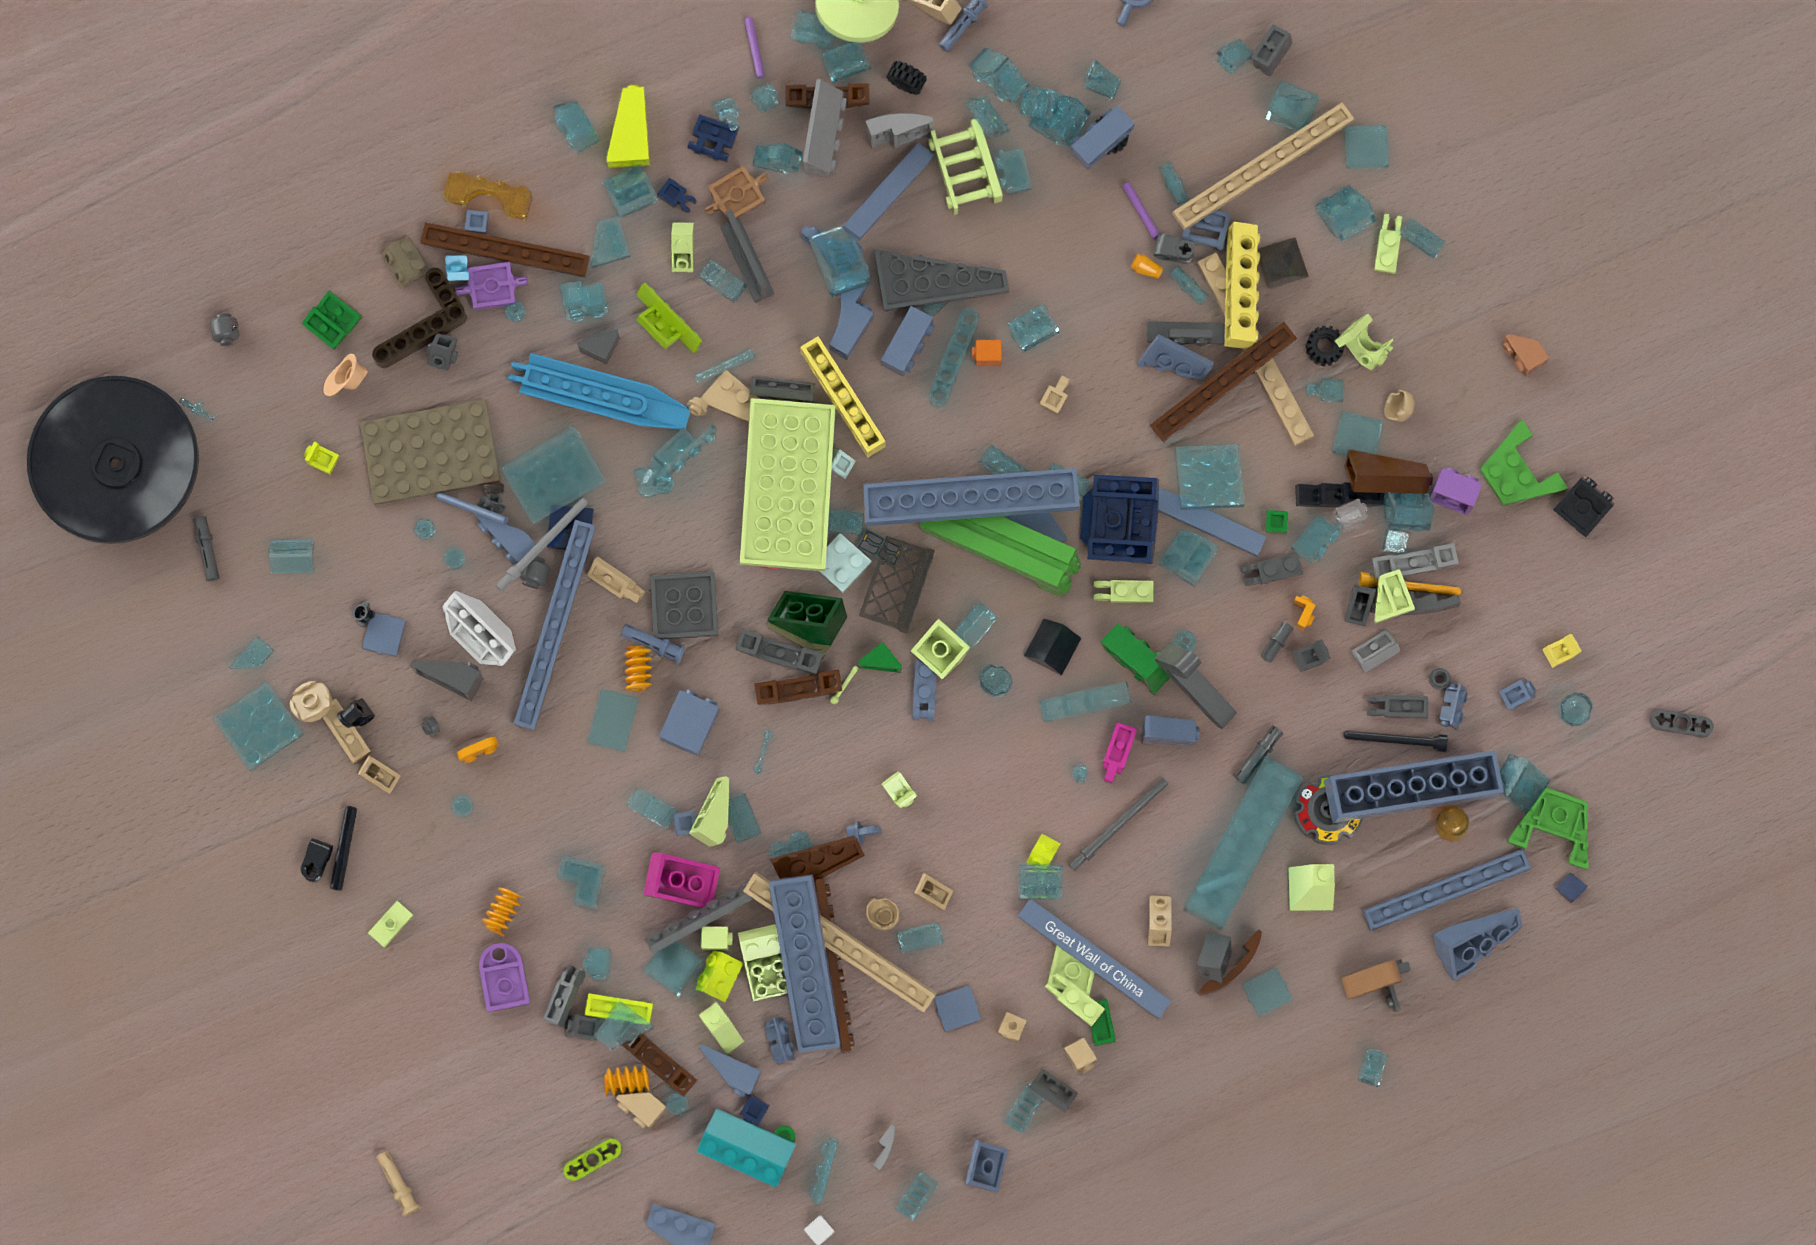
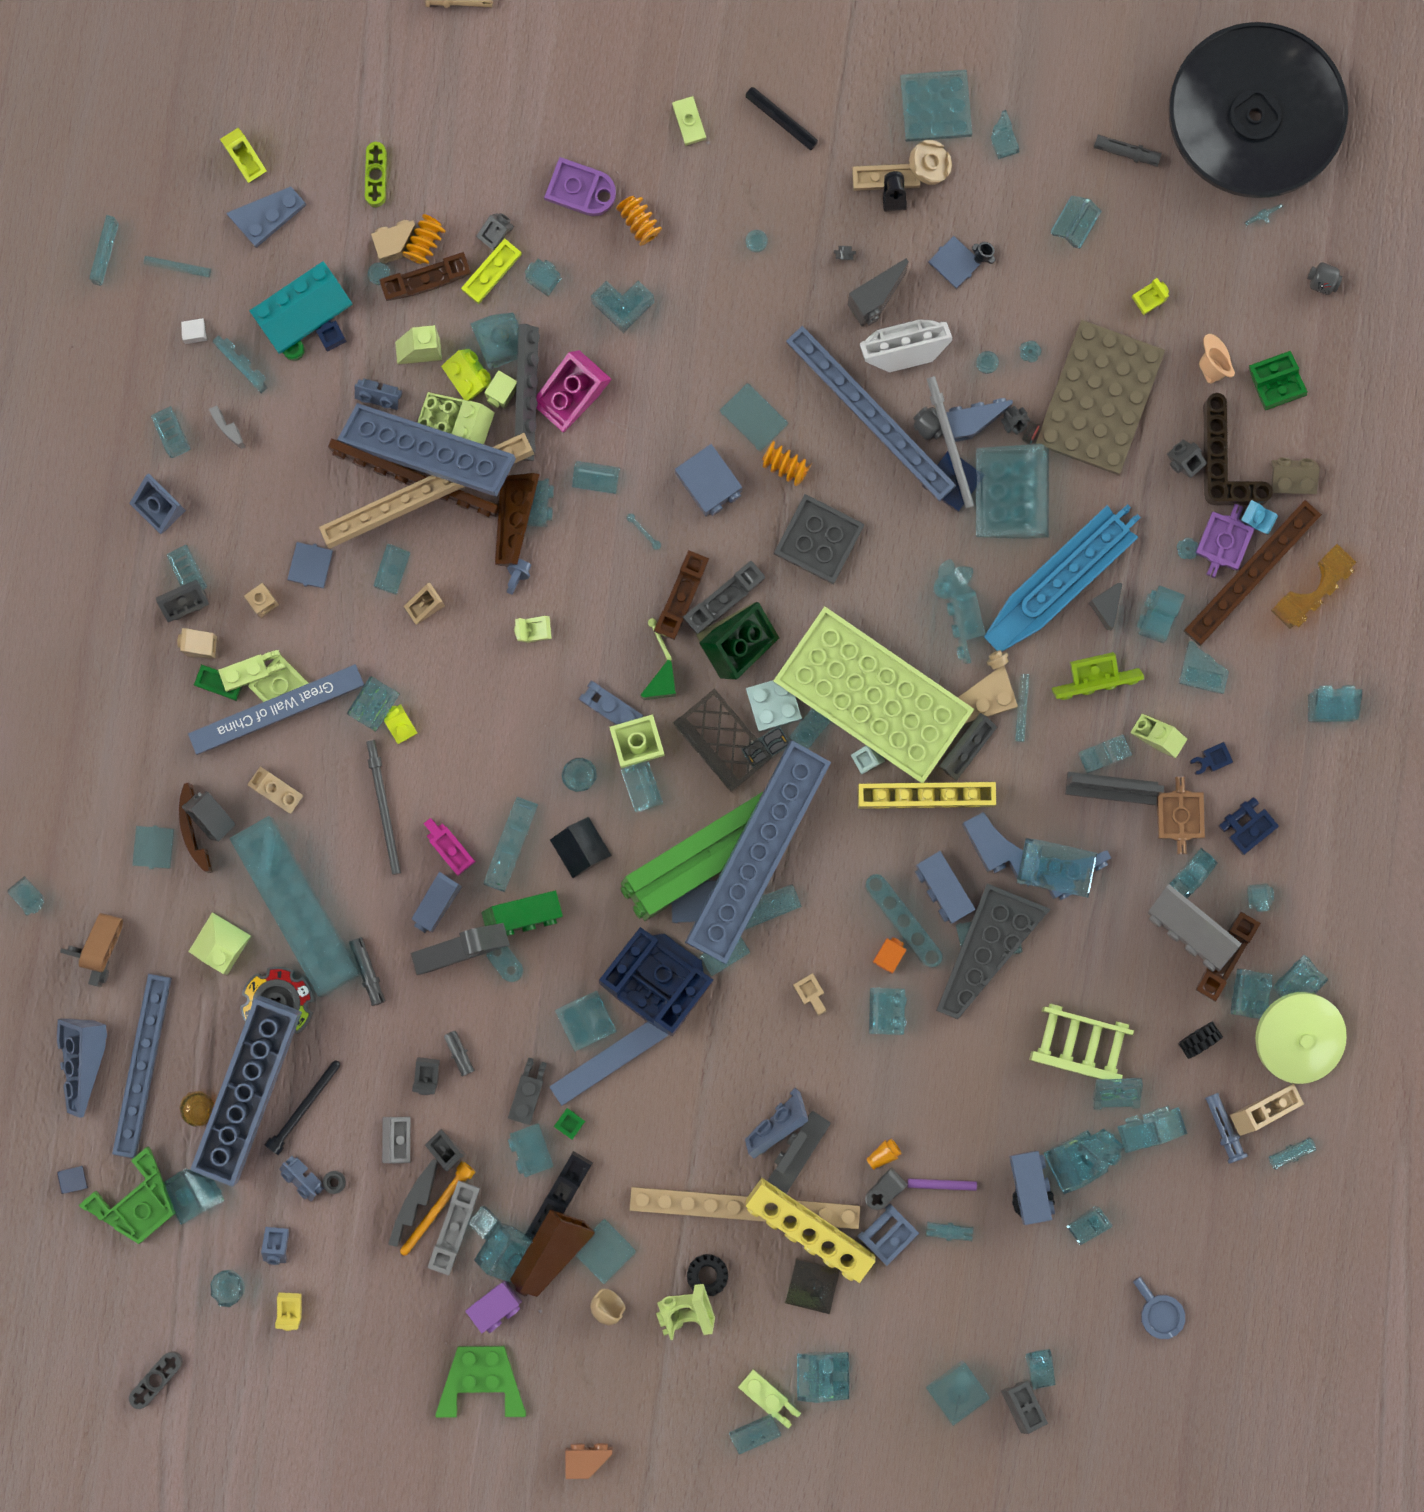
camera: 125 degrees right, 5 degrees up
(317, 856) = (787, 90): black piece -> none
(378, 775) = (828, 183): tan slope -> none
(472, 508) = (1032, 394): sand blue bar -> none
(476, 221) = (1294, 562): sand blue plate -> none
(485, 746) = (798, 273): light orange plate -> none
(564, 996) = (532, 230): dark grey hinge -> none
(614, 580) = (879, 490): tan hinge -> none
(621, 1026) = (472, 262): clear light blue wing -> none
(630, 133) = (1298, 752): neon yellow slope -> none
(630, 191) = (1242, 718): clear light blue slope -> none
(651, 807) = (652, 403): clear light blue slope -> none
(662, 647) = (792, 496): sand blue pin -> none
(683, 822) = (620, 424): sand blue plate -> none
(713, 816) = (610, 450): yellowish green slope -> none
(727, 111) = (1267, 854): clear light blue plate -> none
(736, 1074) = (373, 337): sand blue slope -> none
(754, 47) = (1321, 920): medium lavender bar -> none
(882, 914) = (431, 547): tan hair -> none
(888, 191) = (1098, 955): sand blue tile -> none
(898, 129) = (1154, 1001): light grey slope -> none
(1014, 171) = (1050, 1087): clear light blue bracket -> none
(1080, 773) = (450, 800): clear light blue plate -> none
(1125, 591) = (590, 945): yellowish green hinge -> none
(1188, 285) = (842, 1183): clear light blue pin -> none
(1209, 477) = (648, 1087): clear light blue plate -> none
(1223, 382) = (729, 1156): reddish brown plate -> none
(1263, 166) = (914, 1326): tan plate -> none
(1306, 618) = (463, 1094): light orange bracket -> none
(1329, 390) = (663, 1252): clear light blue plate -> none
(1351, 515) = (529, 1193): clear brick -> none
(1366, 147) = (876, 1439): clear light blue tile -> none
(1392, 597) = (430, 1182): yellowish green wing -> none
(1400, 706) = (330, 1129): dark grey hinge -> none
(1584, 506) = (408, 1422): black plate -> none

